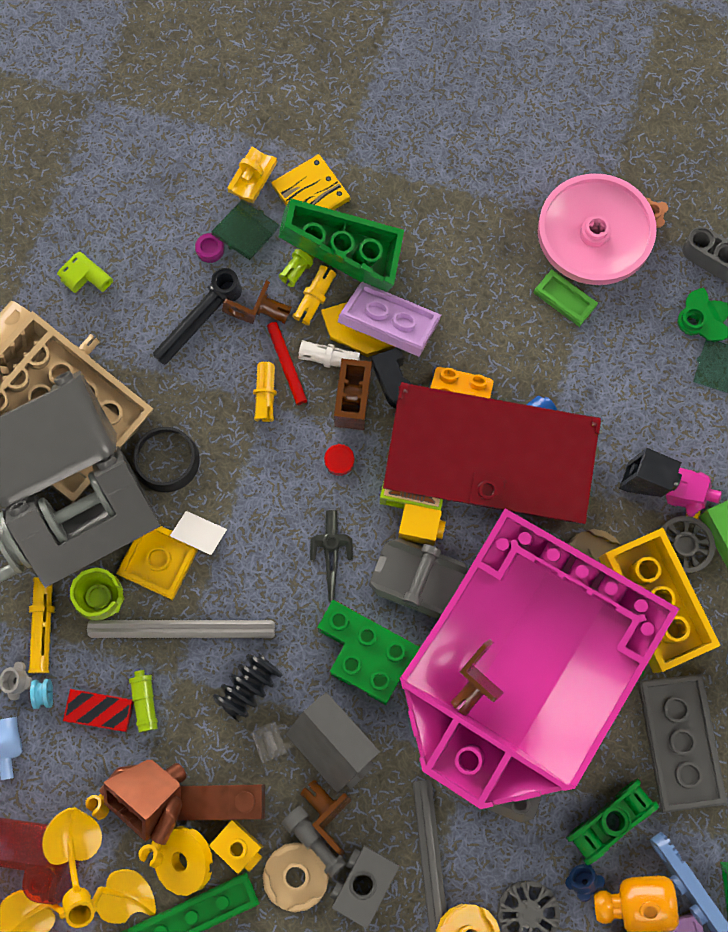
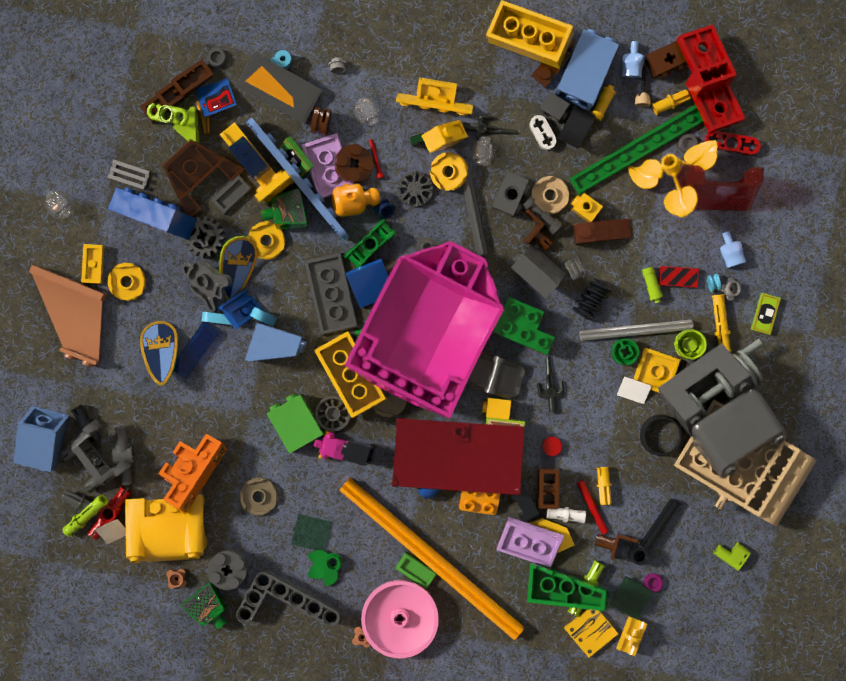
camera: 175 degrees right, 15 degrees up
(144, 800) = (642, 227): copper torso -> none
(198, 855) = (624, 193): yellow tile -> none
(204, 594) = (624, 351): none -> green wheel
(314, 295) = (580, 554): yellow pin -> none
(477, 684) = (457, 312): reddish brown bracket -> none
(545, 315) = (432, 558): none -> light orange axle
(623, 756) = (368, 282): none -> blue tile

